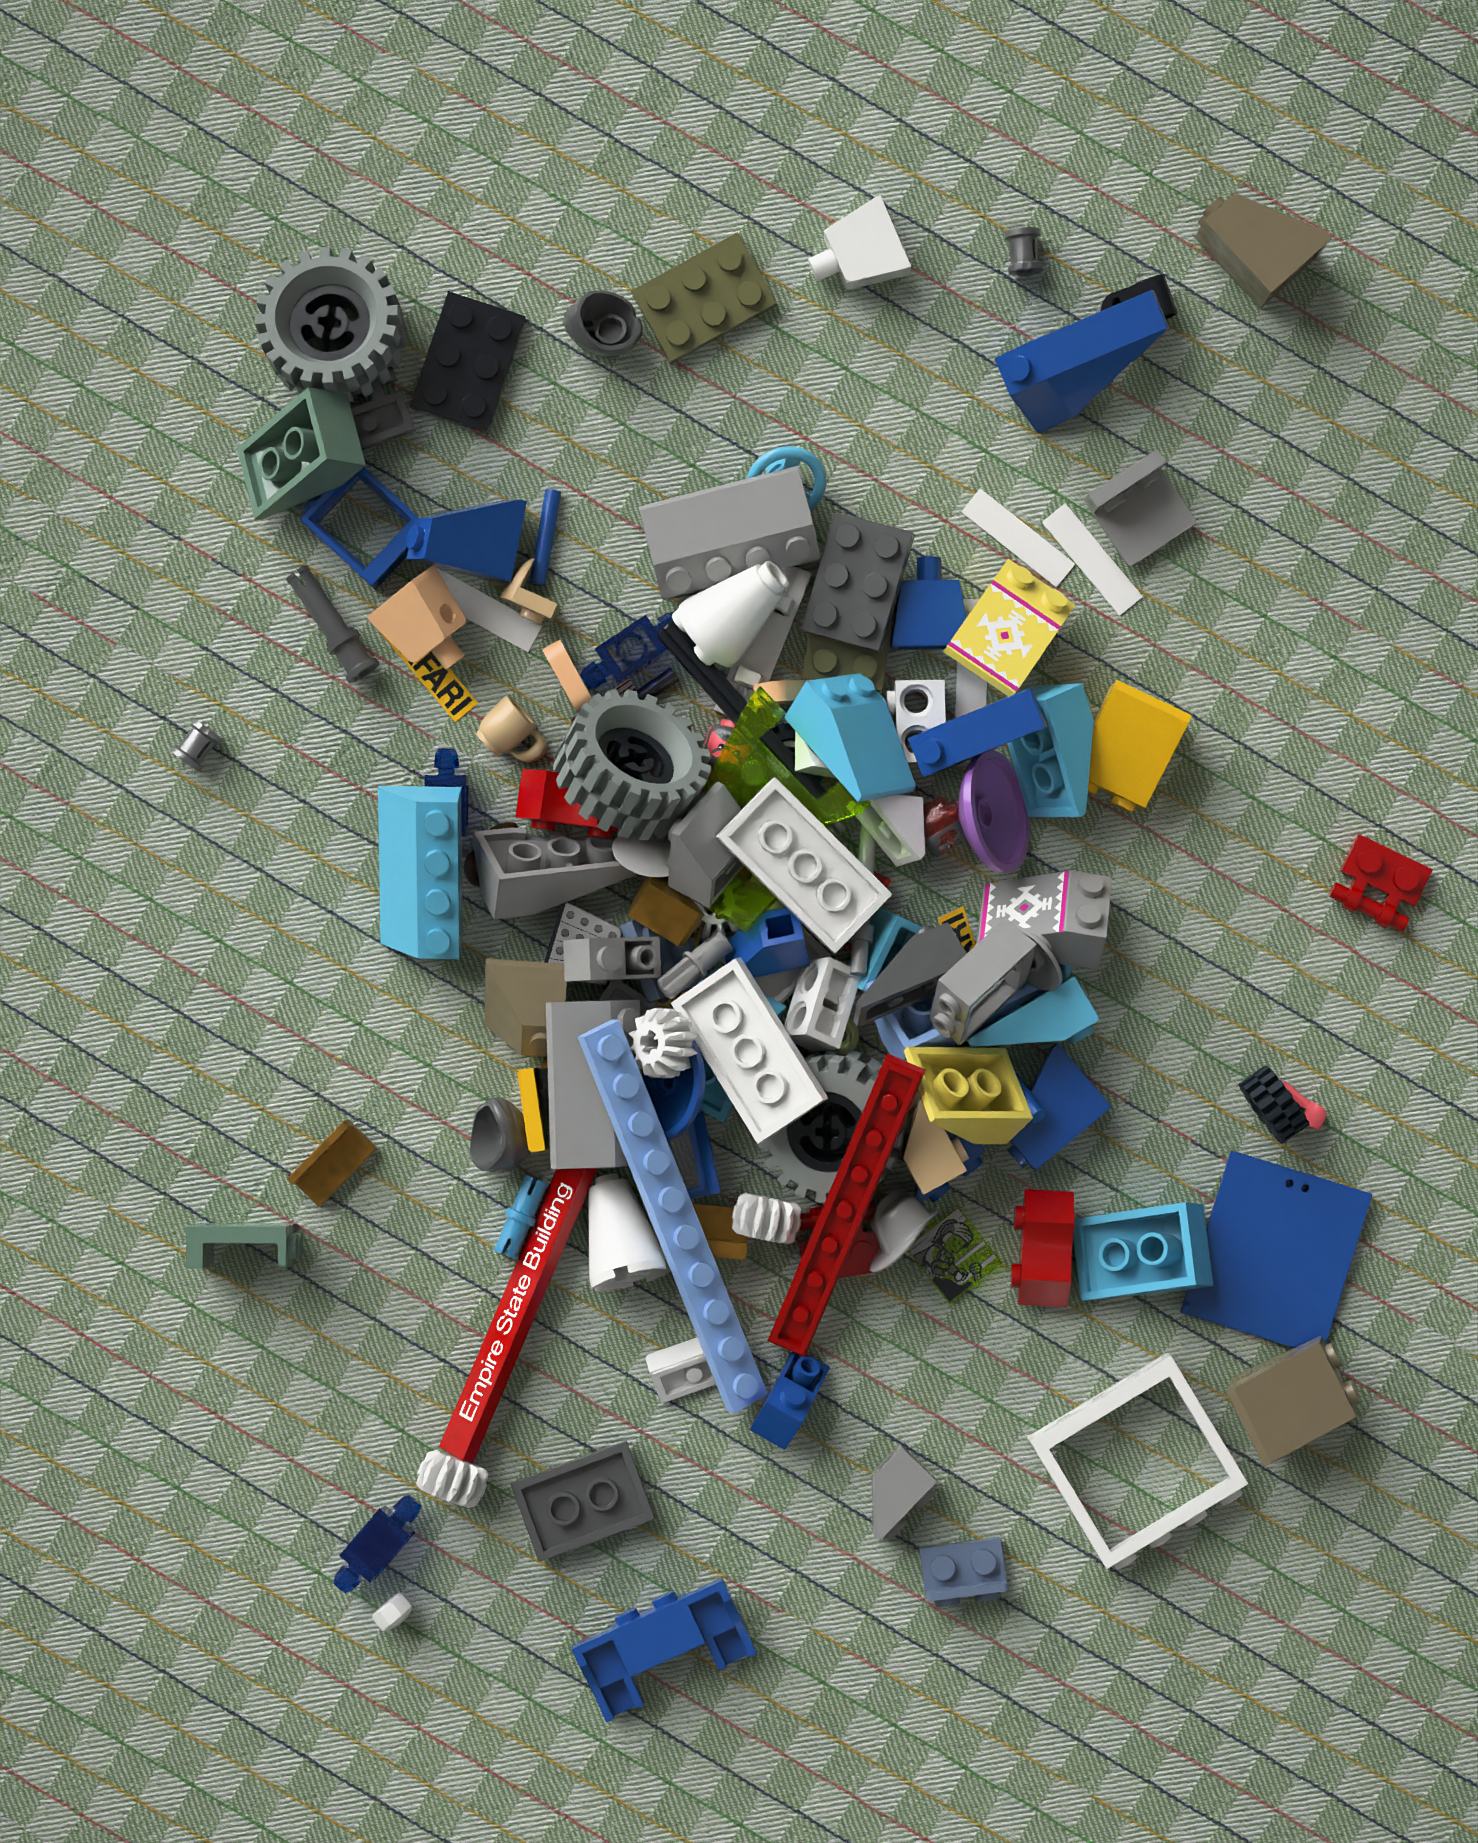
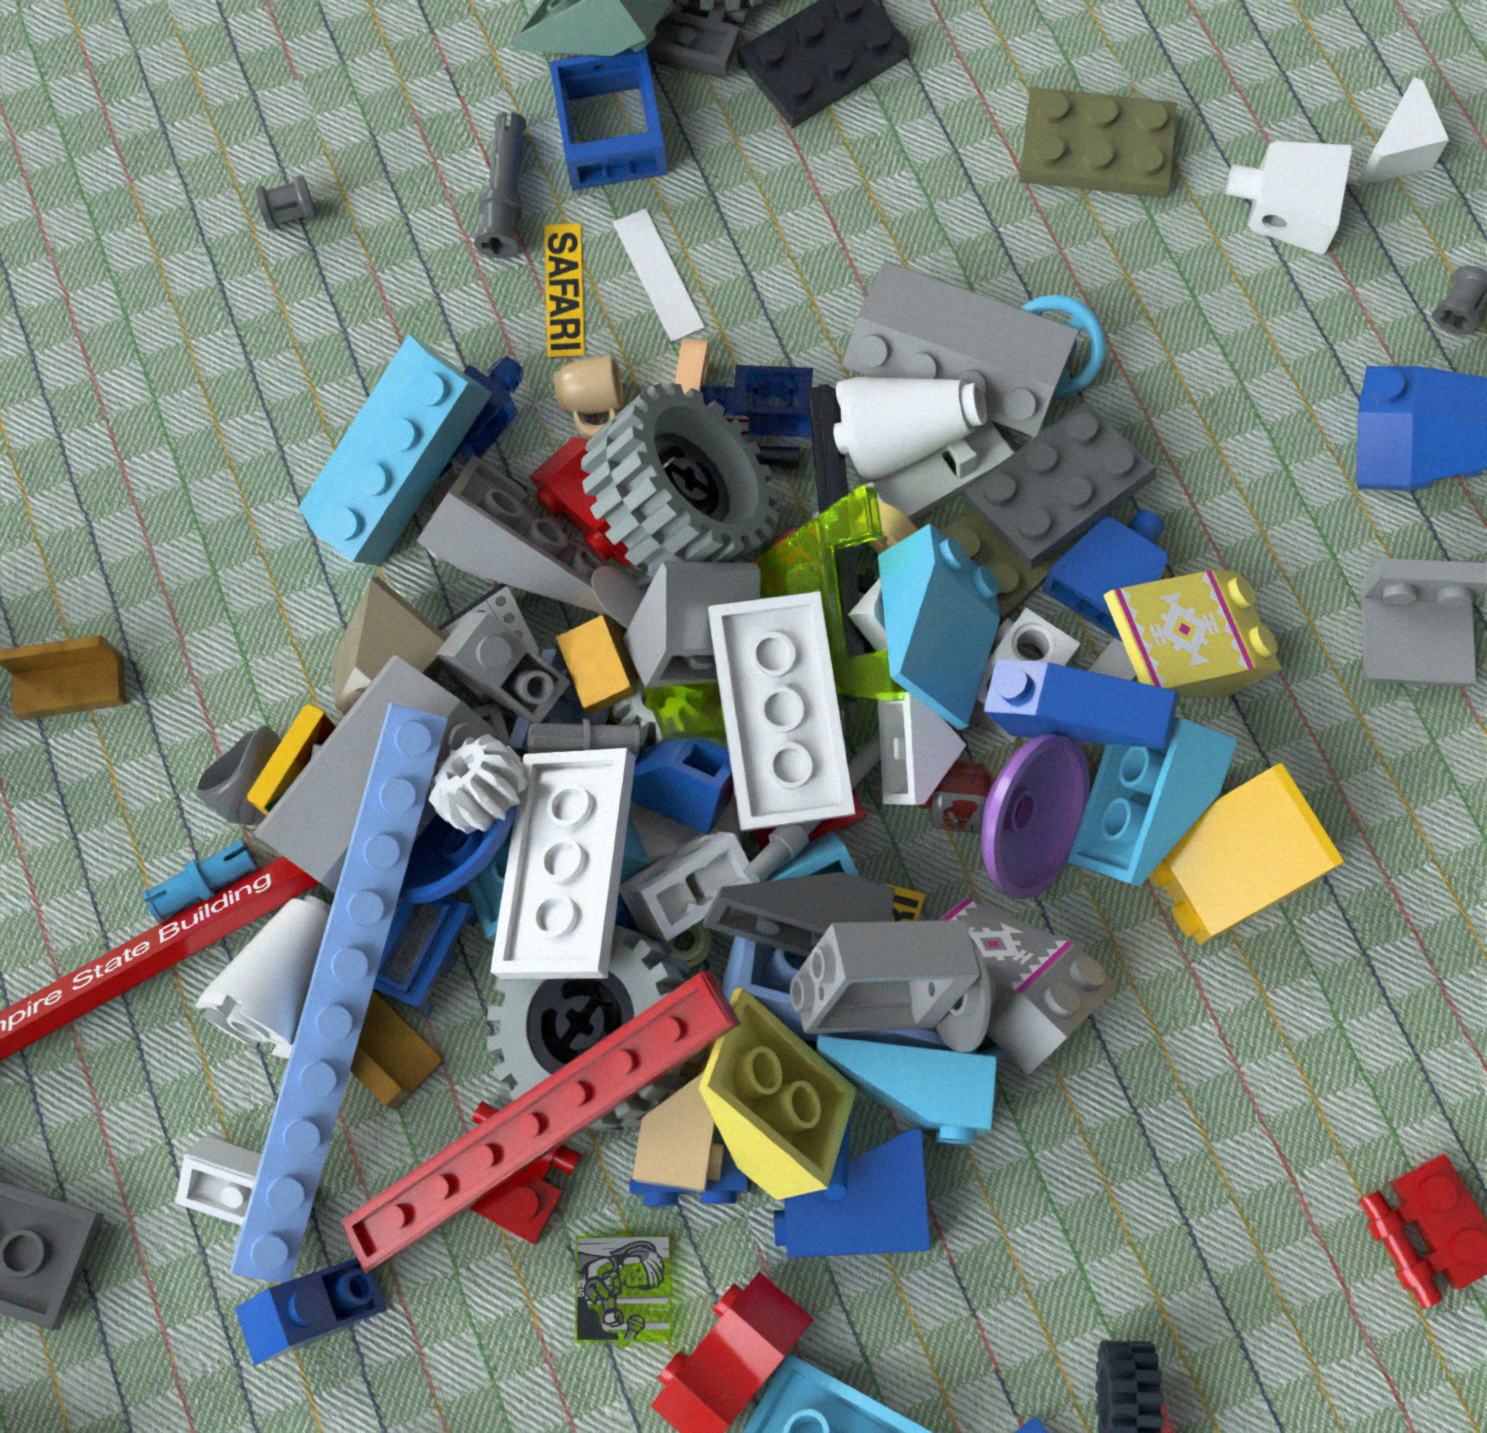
camera: 40 degrees right, 15 degrees down
(422, 619) = (590, 223): light nougat torso -> none
(470, 540) = (693, 183): blue slope -> none
(532, 606) = (707, 290): tan plate -> none
(545, 537) = (772, 248): blue piece -> none
(603, 324) = (980, 89): dark grey hair -> none
(766, 1218) = (445, 1078): white gear -> none
(896, 1226) = (580, 1194): light grey piece -> none
(909, 152) = (1410, 139): none -> white slope
(1018, 537) = (1261, 569): white sticker -> none
(1092, 559) = (1327, 648): white sticker -> none

